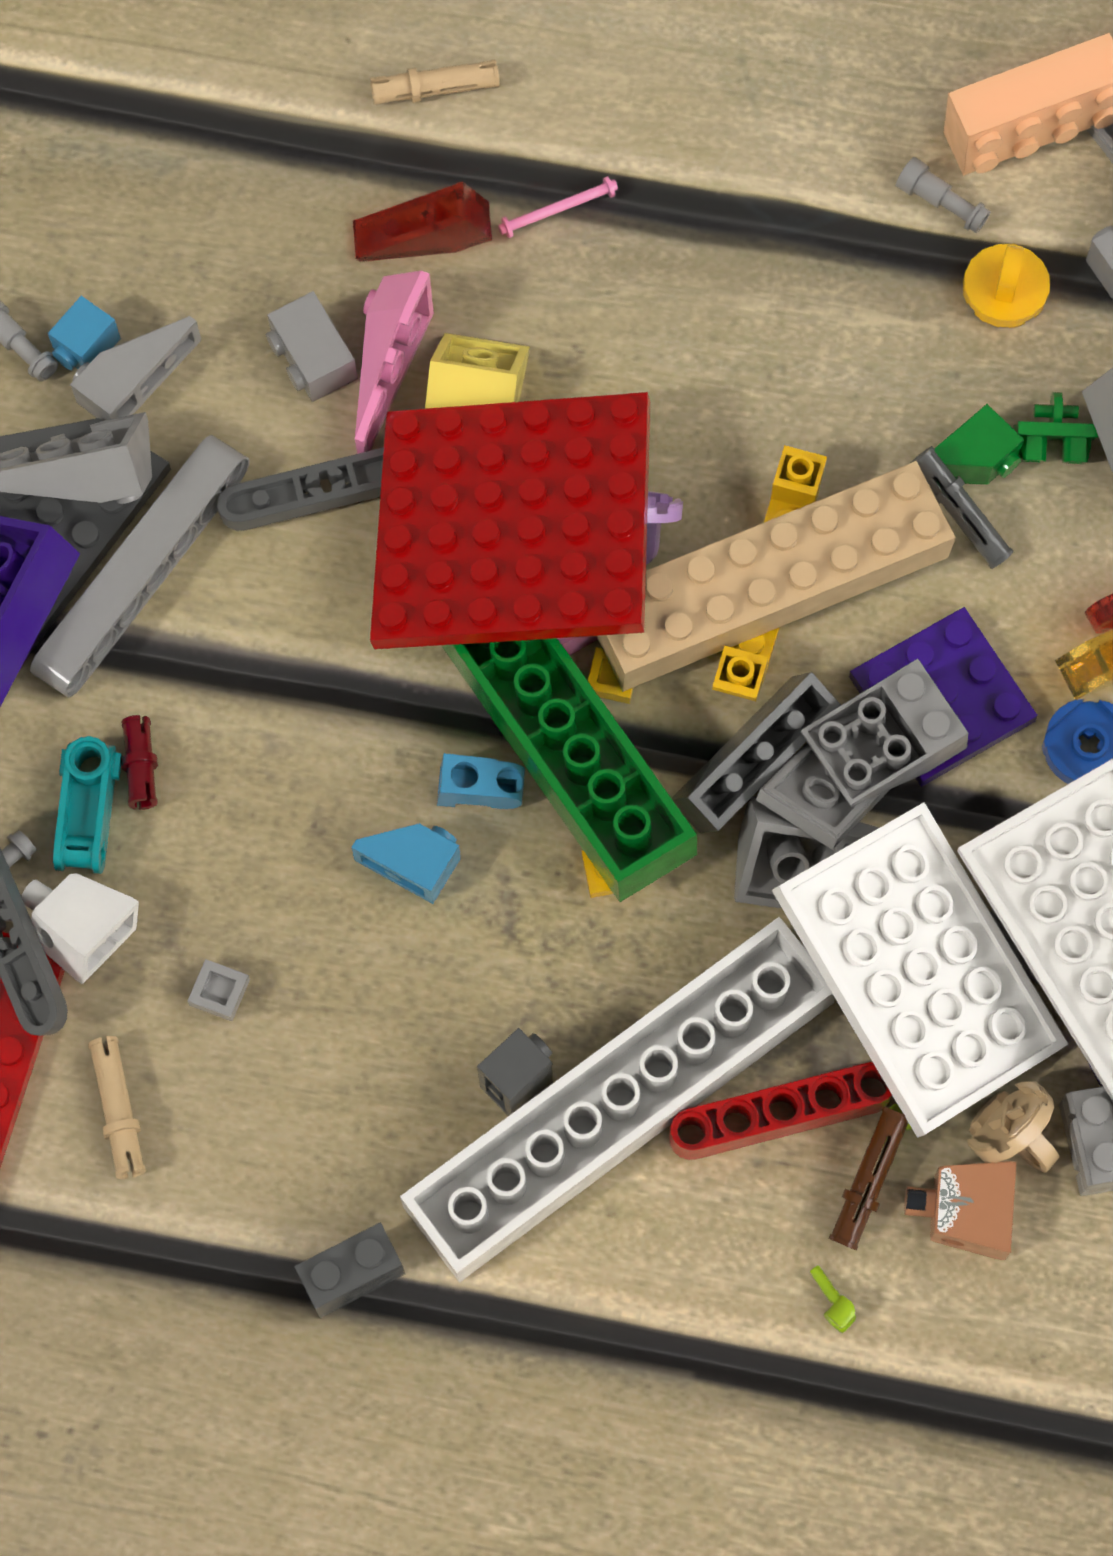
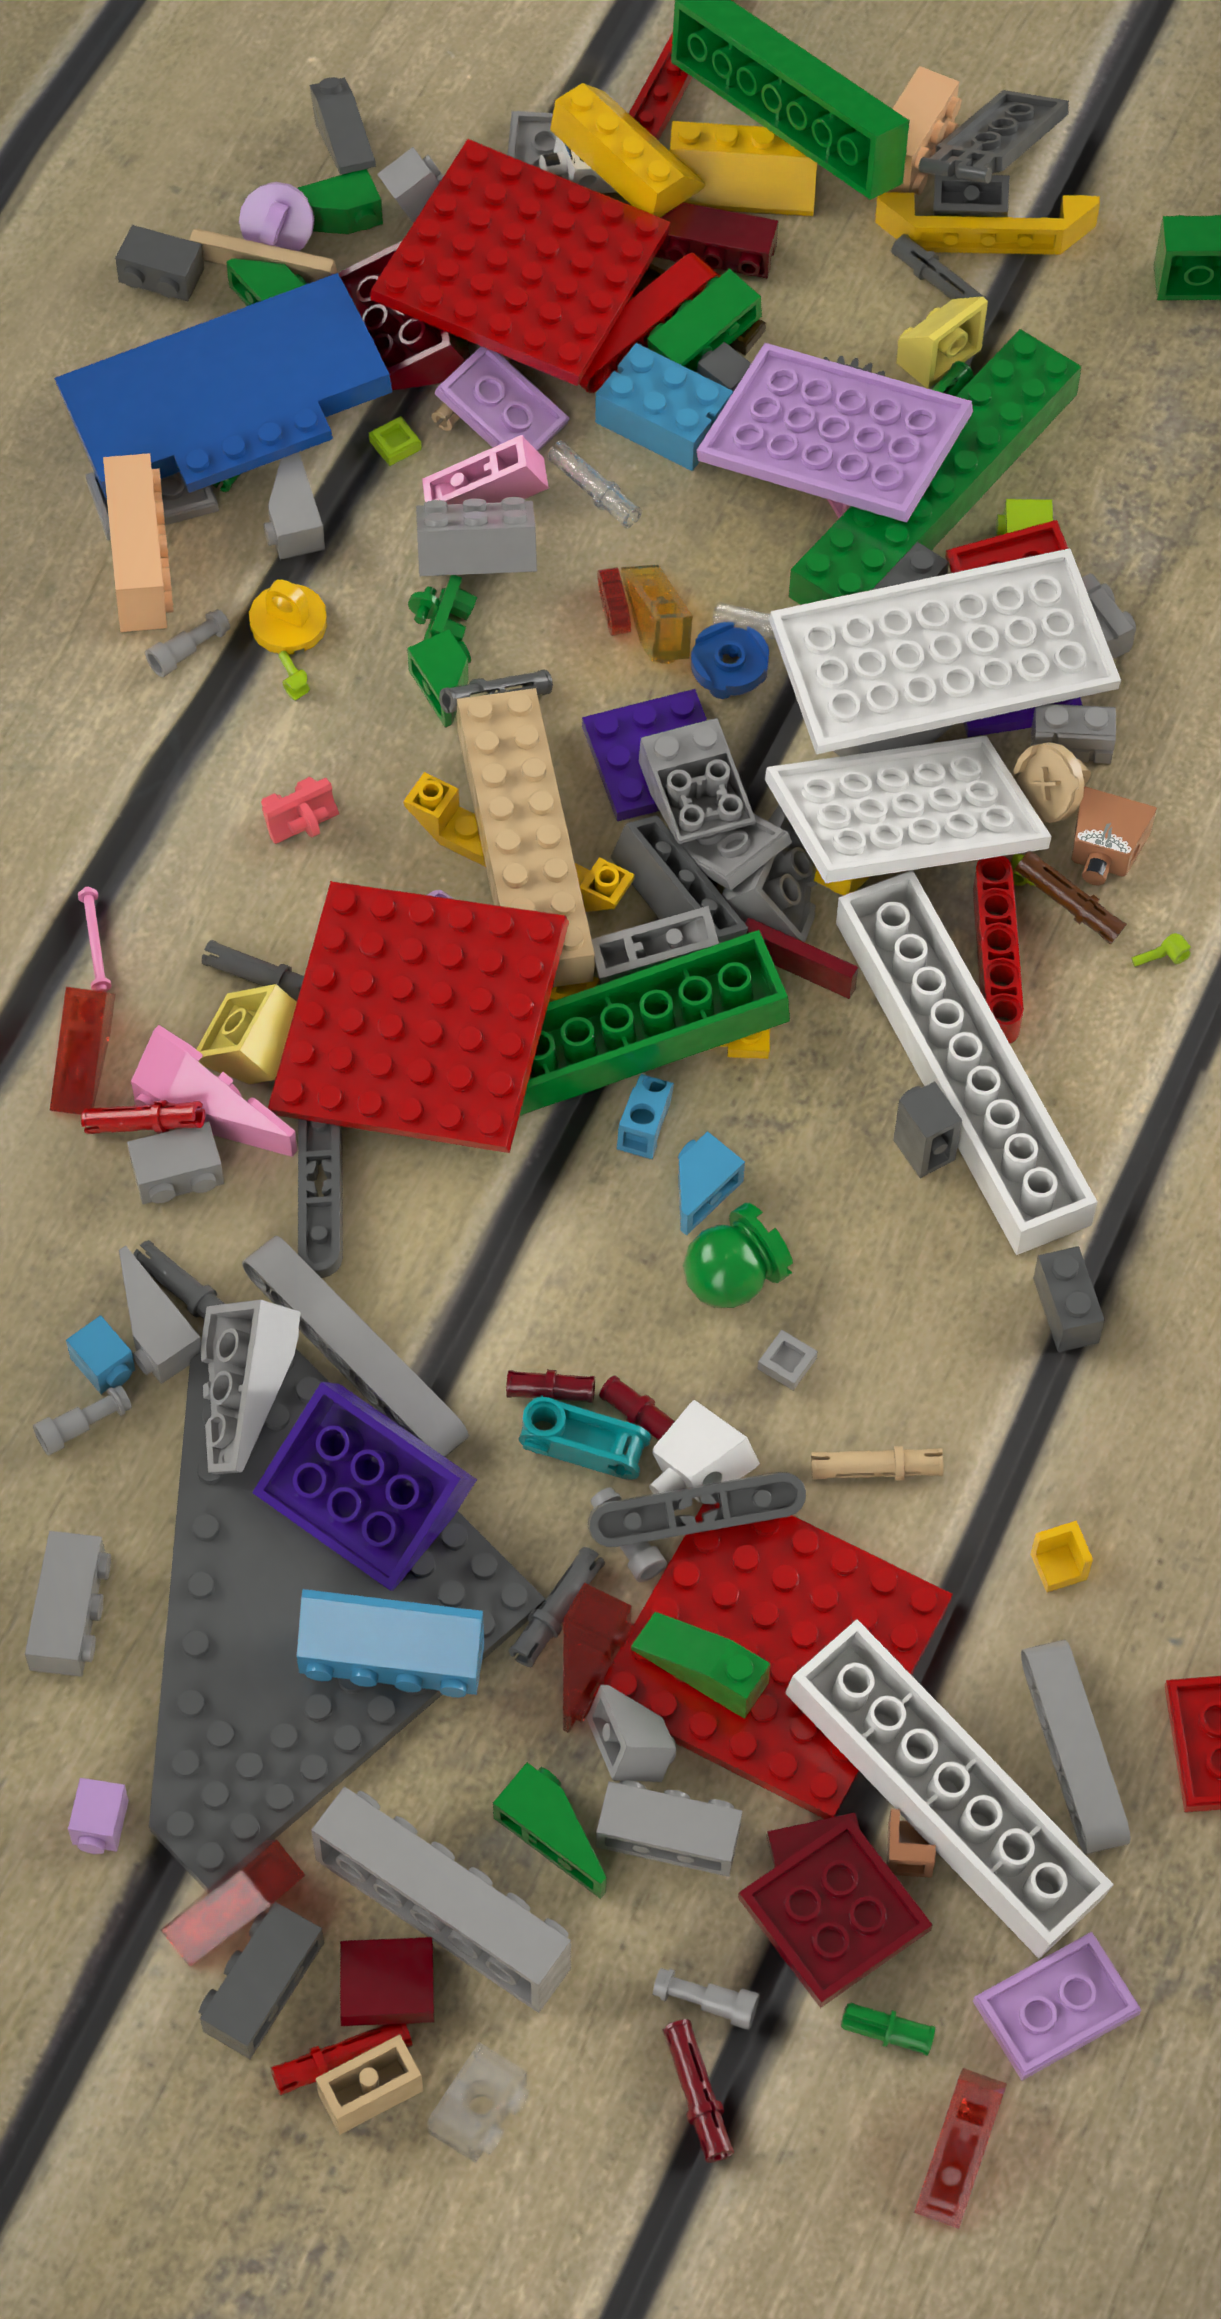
camera: 80 degrees left, 10 degrees down
(42, 1321) = (1061, 1556): none -> yellow panel
(131, 853) = (637, 1408): none -> dark red pin
(168, 407) = (177, 1280): none -> dark grey pin
(307, 905) = (730, 1263): none -> green tile
(348, 311) = (157, 1117): none -> red pin
(560, 355) = (252, 968): none -> dark grey pin
(667, 735) = (653, 943): none -> light grey slope
(713, 899) = (807, 960): none -> dark red tile
(759, 356) = (299, 811): none -> coral hips
(925, 316) = (296, 683): none -> lime hand

